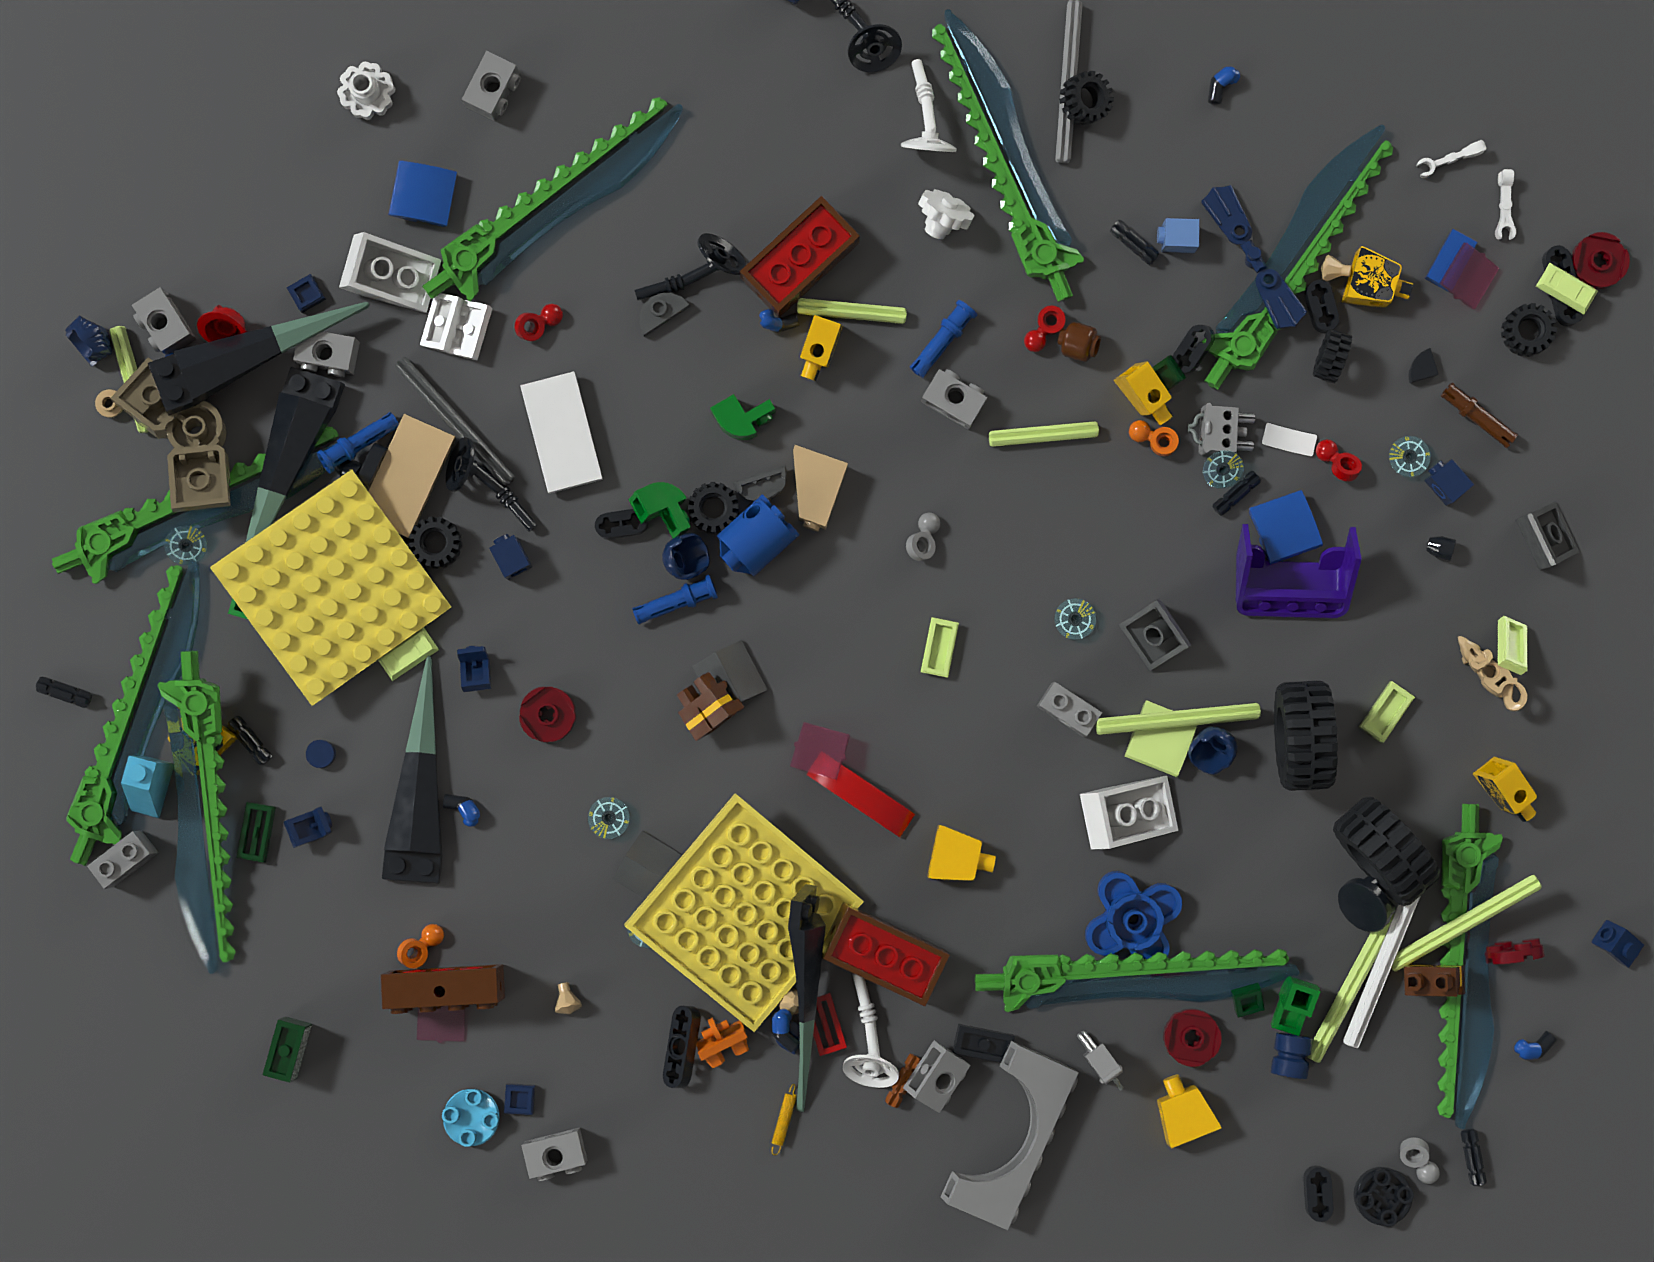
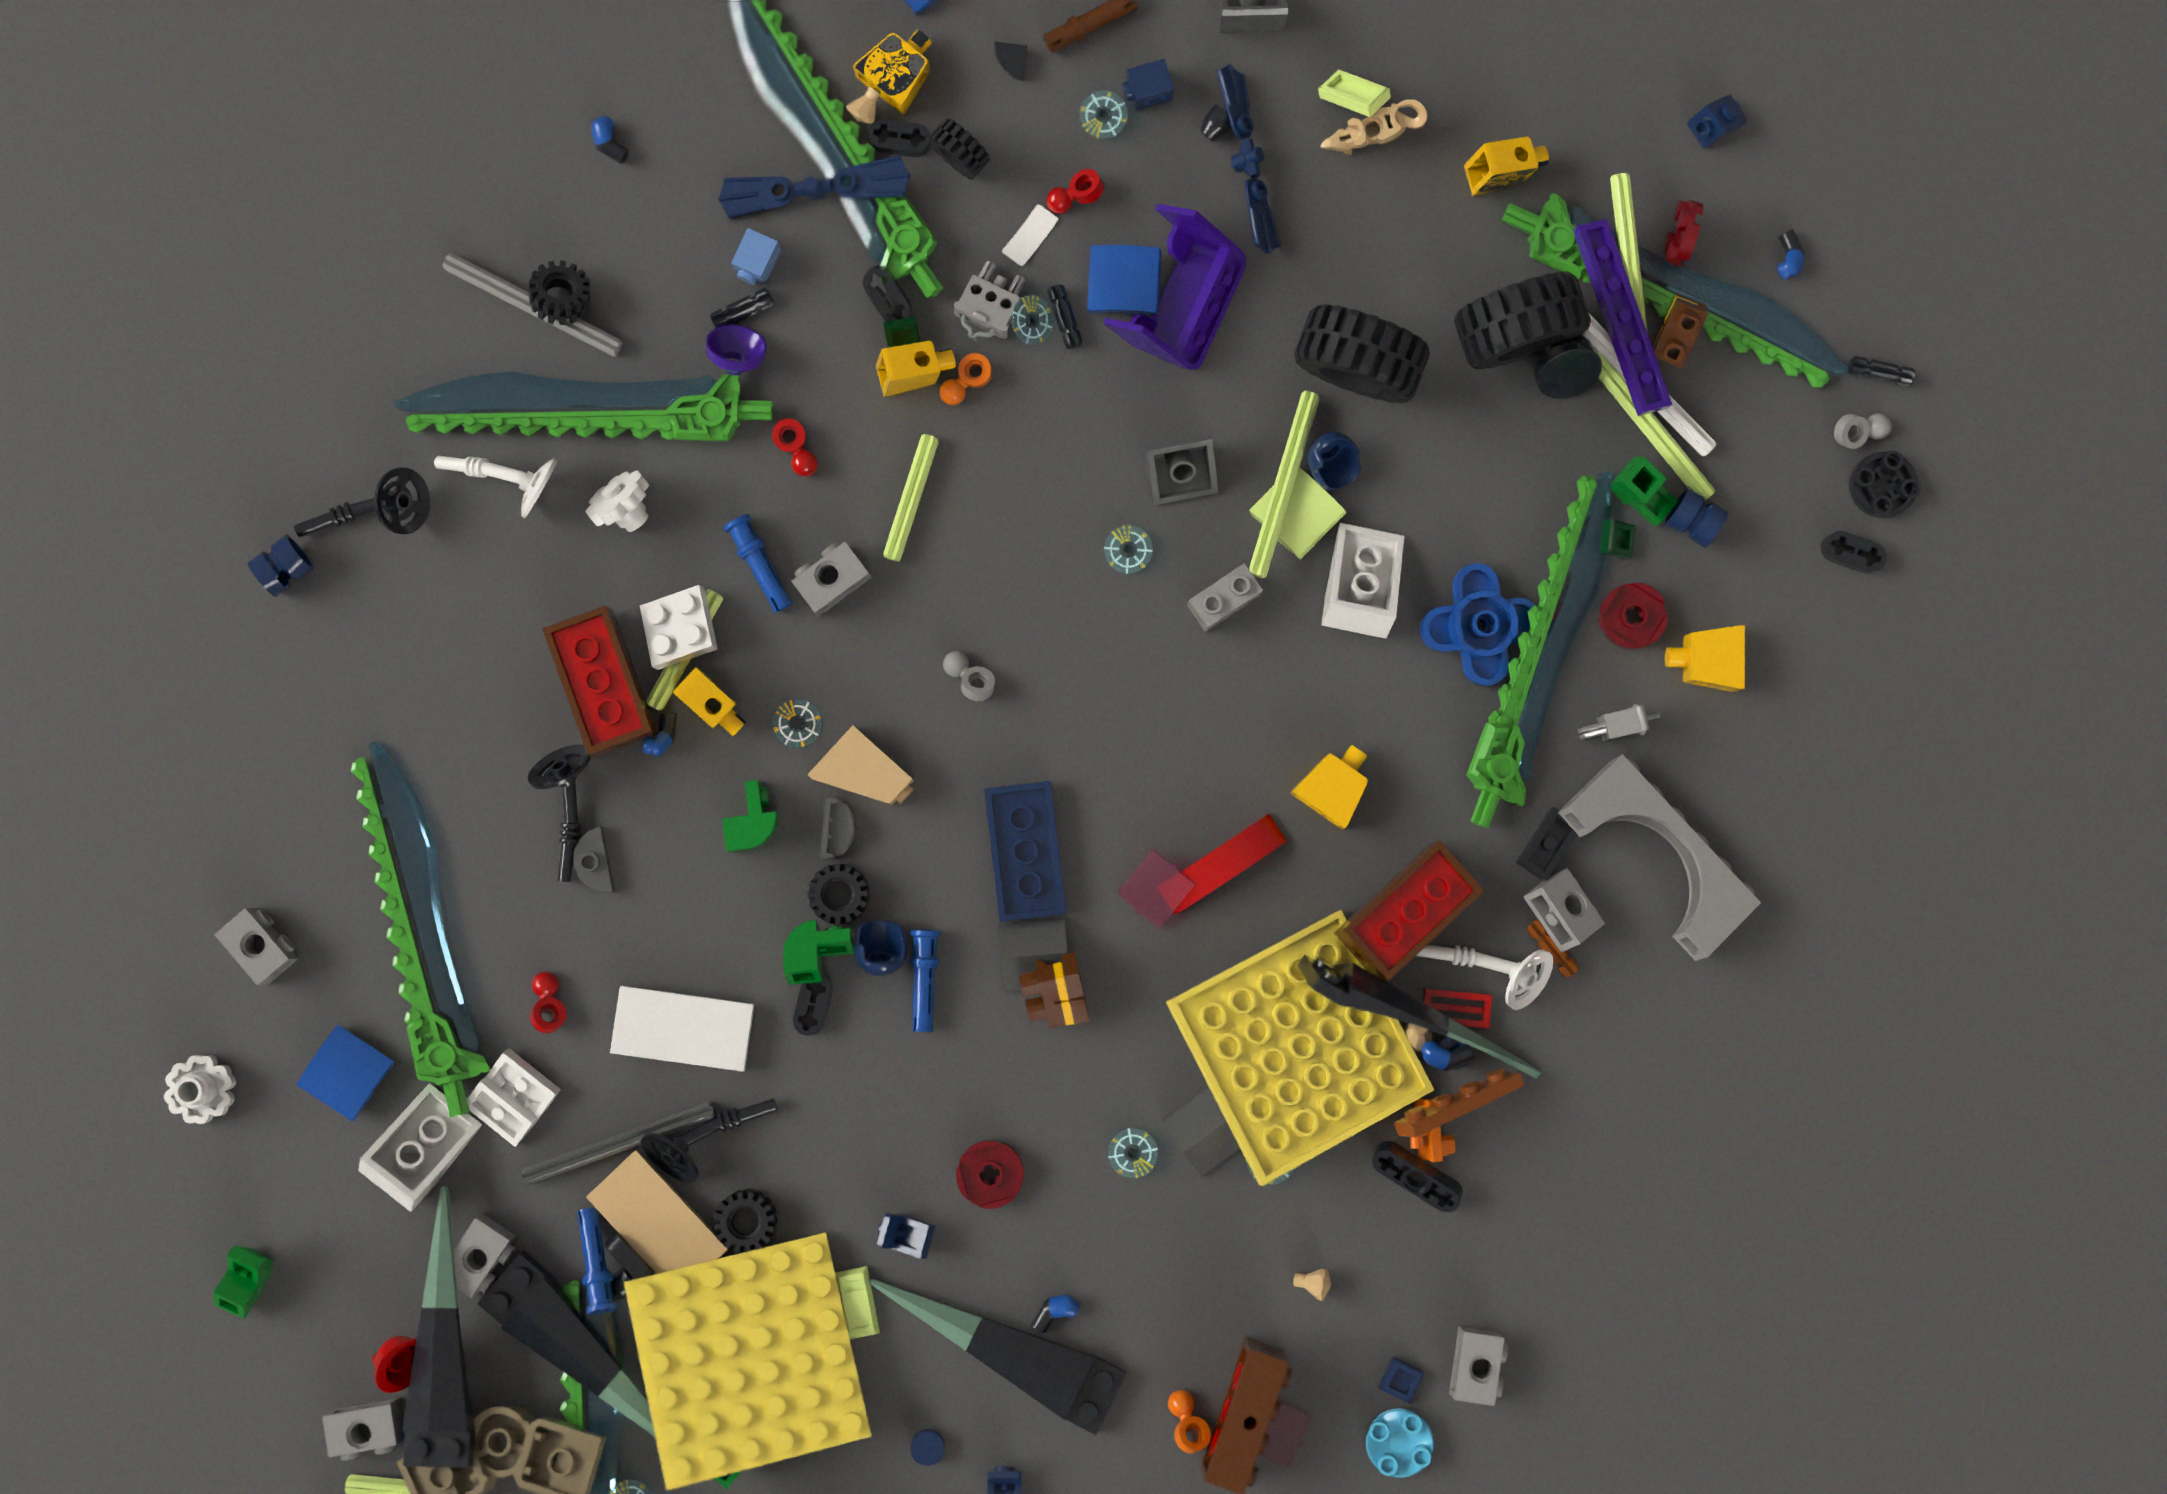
camera: 70 degrees left, 0 degrees up
(235, 184) = (242, 1281): none -> green brick
(306, 293) = (401, 1251): dark blue tile -> none
(510, 556) = (796, 1143): dark blue brick -> none
(745, 1047) = (1449, 1106): none -> dark orange plate
(755, 537) = (892, 861): blue cylinder -> none
(784, 1119) = (1544, 1098): yellow piece -> none
(806, 637) = (1025, 851): none -> dark blue plate
(831, 420) = (797, 723): none -> clear light blue piece
(866, 298) = (678, 627): none -> white plate
(939, 647) = (1097, 710): yellowish green tile -> none
(1079, 341) = (826, 415): reddish brown head -> none
(1105, 247) = (735, 343): none -> dark purple piece
(1386, 712) = (1369, 258): yellowish green tile -> none
(1425, 930) = (1622, 317): none -> dark purple plate
(1463, 557) = (1237, 104): none -> dark blue piece

